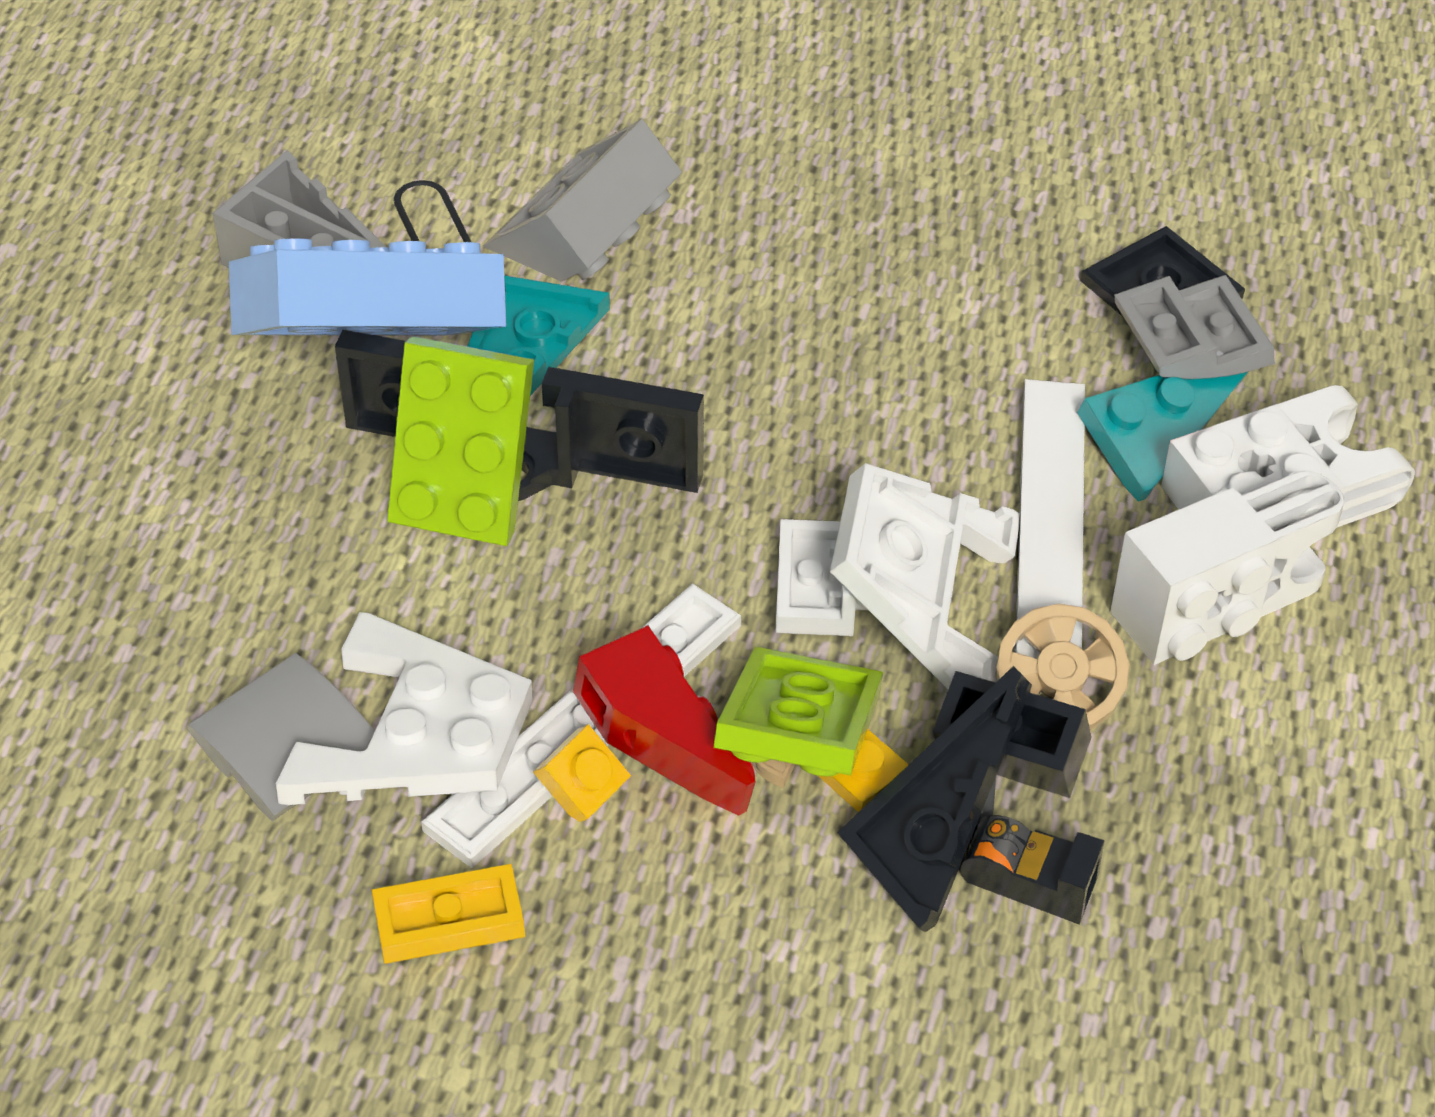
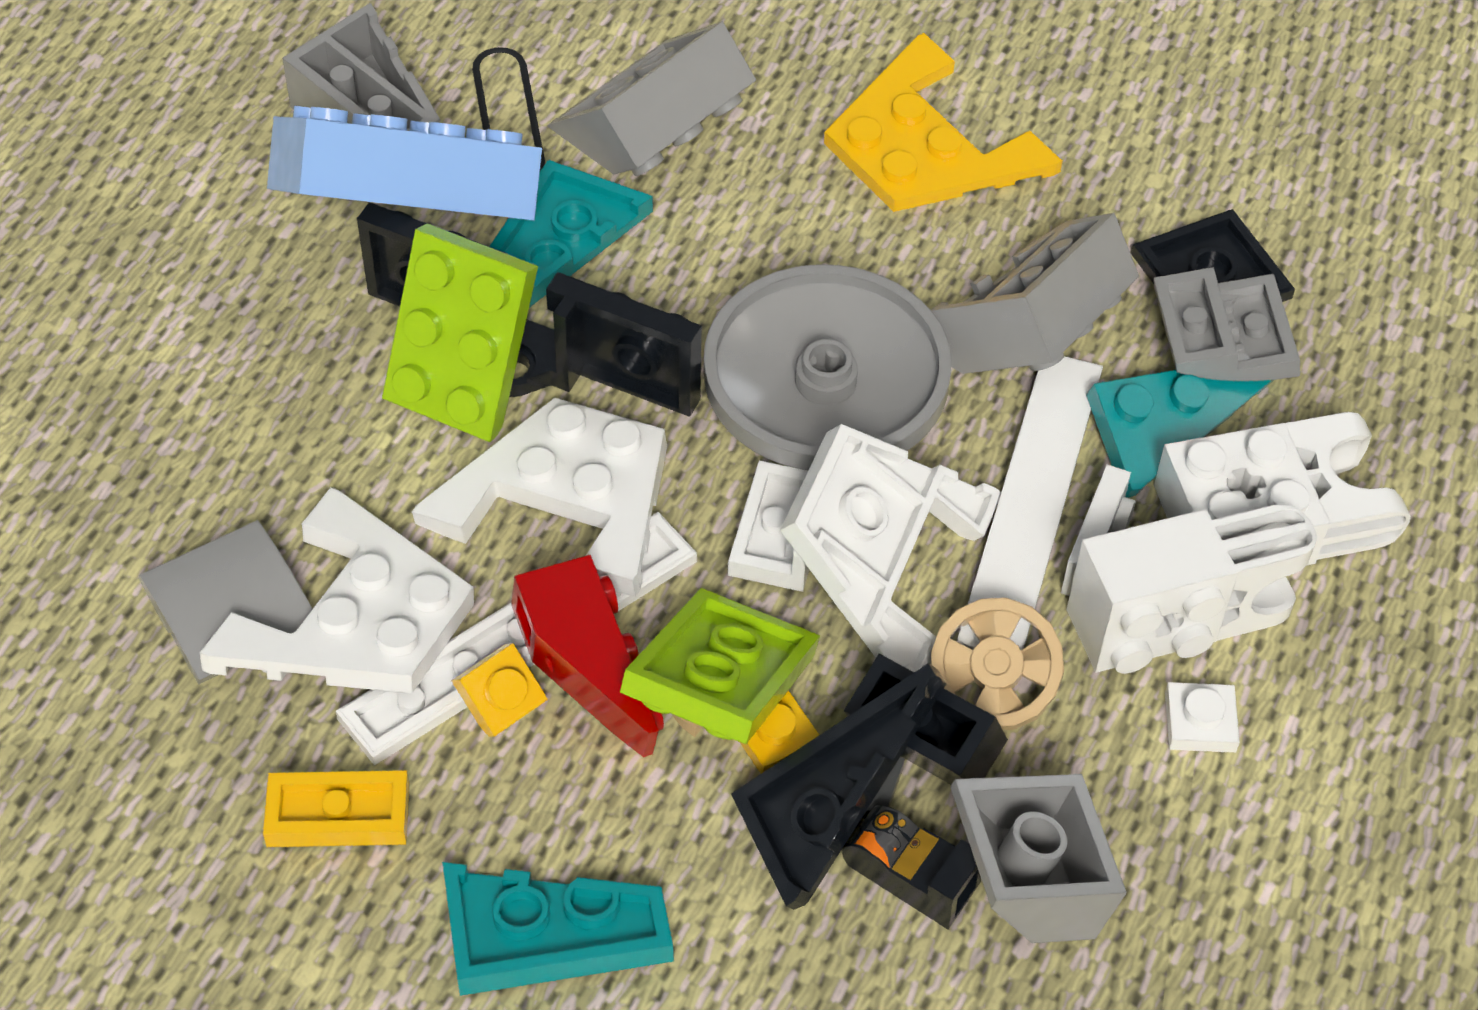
camera: 10 degrees right, 5 degrees up
(591, 554) = (568, 465): none -> white wing
(680, 996) = (540, 931): none -> teal wing
(814, 407) = (822, 353): none -> light grey dish
(849, 219) = (912, 151): none -> yellow wing
(1013, 335) = (1042, 302): none -> light grey wedge
(1128, 512) = (1107, 513): none -> white plate
(1162, 831) = (1041, 854): none -> light grey slope
(1267, 688) = (1201, 717): none -> white plate

